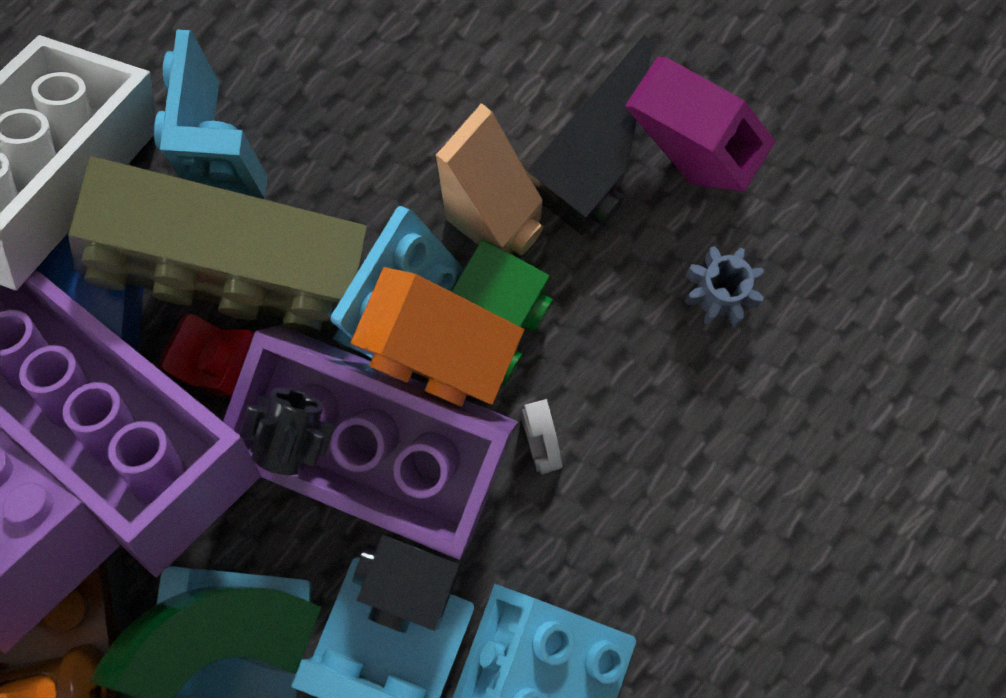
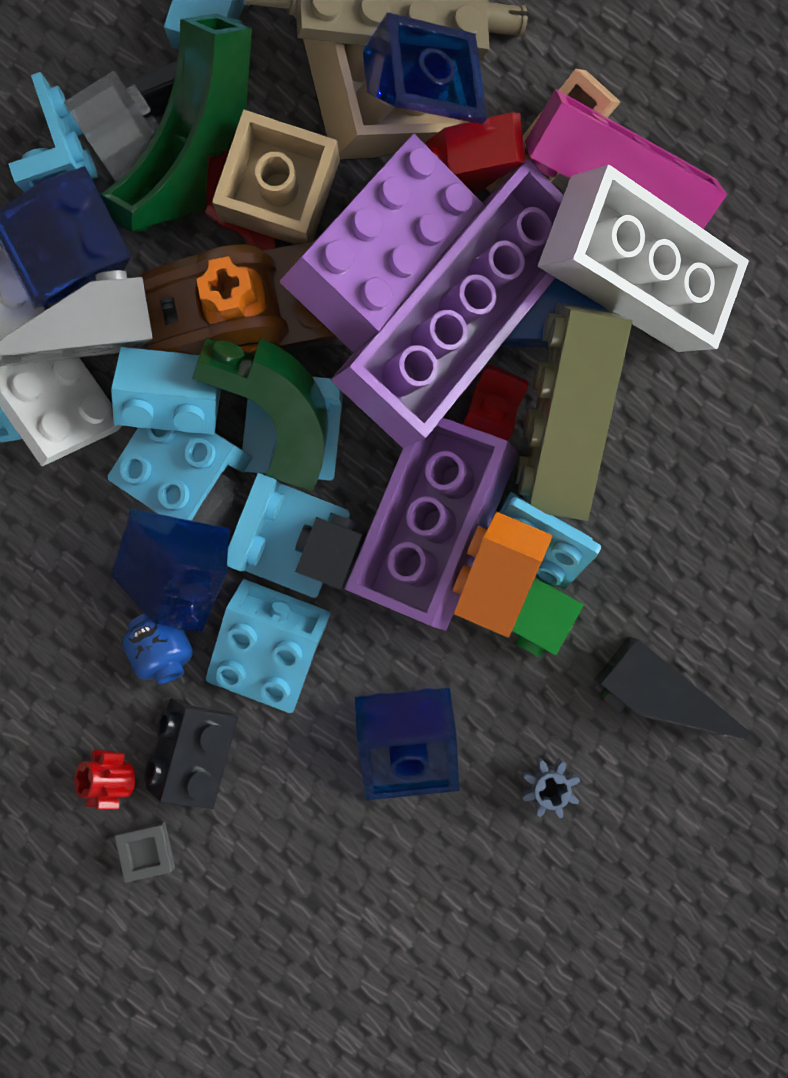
camera: 90 degrees right, 10 degrees up
(189, 136) = (651, 389): medium azure bracket -> none
(286, 431) = (432, 467): black gear -> none
(488, 187) = (619, 612): light nougat slope -> none
(541, 436) = (435, 647): white tile -> none
(672, 474) = (407, 743): none -> clear blue slope
(700, 126) = (674, 774): magenta slope -> none

